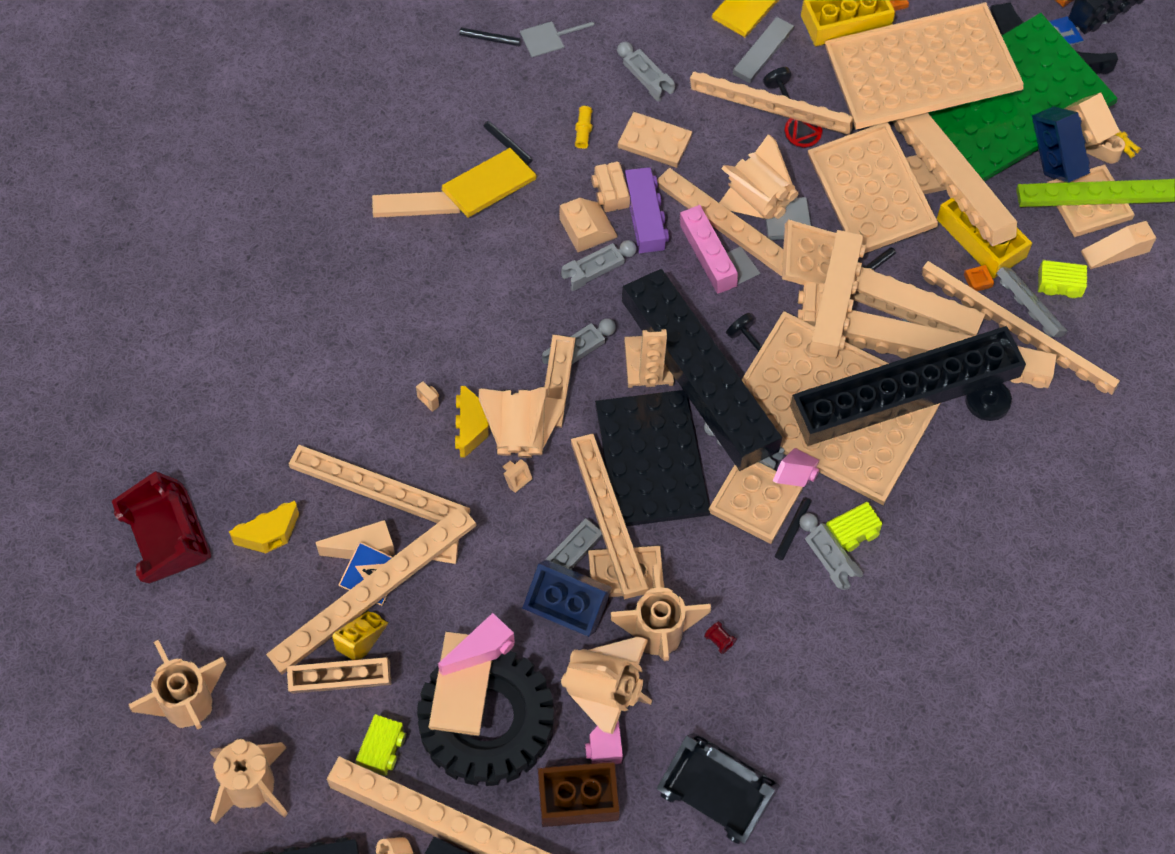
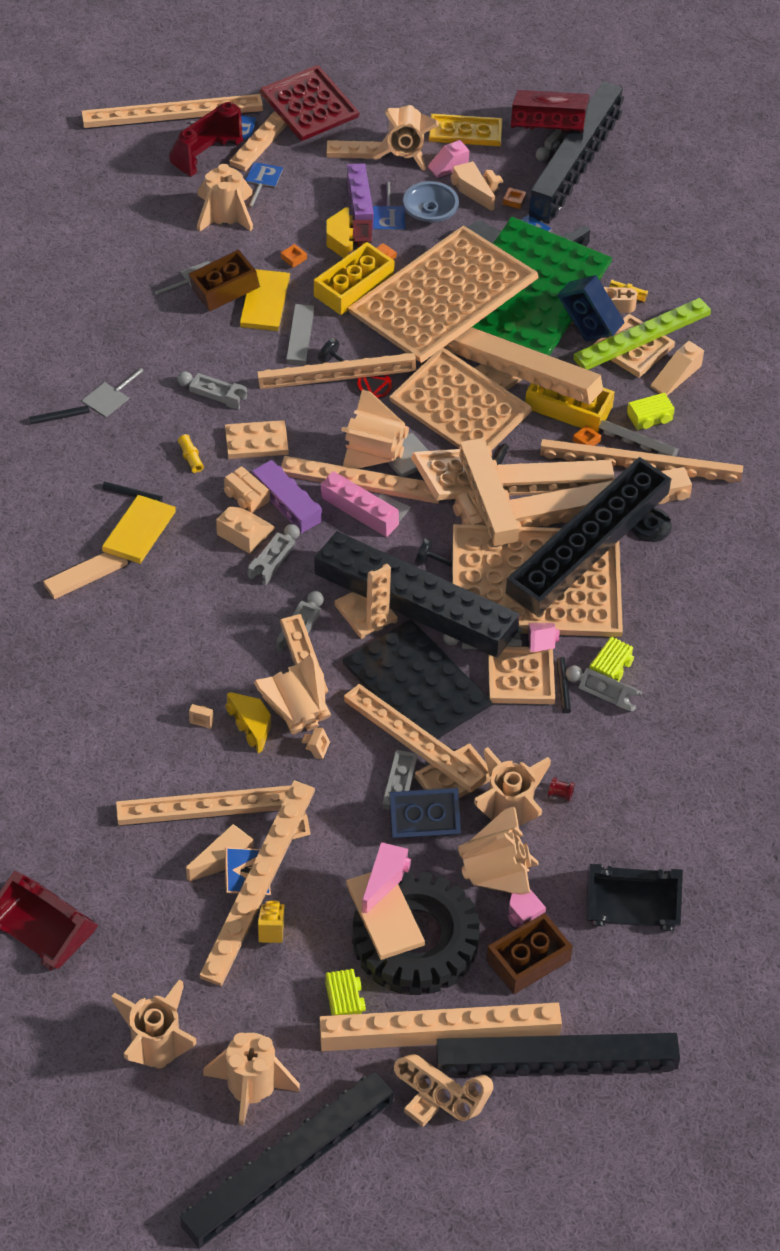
camera: 30 degrees left, 10 degrees down
(267, 529) = (133, 881): yellow slope -> none
(339, 675) = (275, 959): light nougat brick -> none
(1096, 119) = (611, 276): light nougat brick -> none

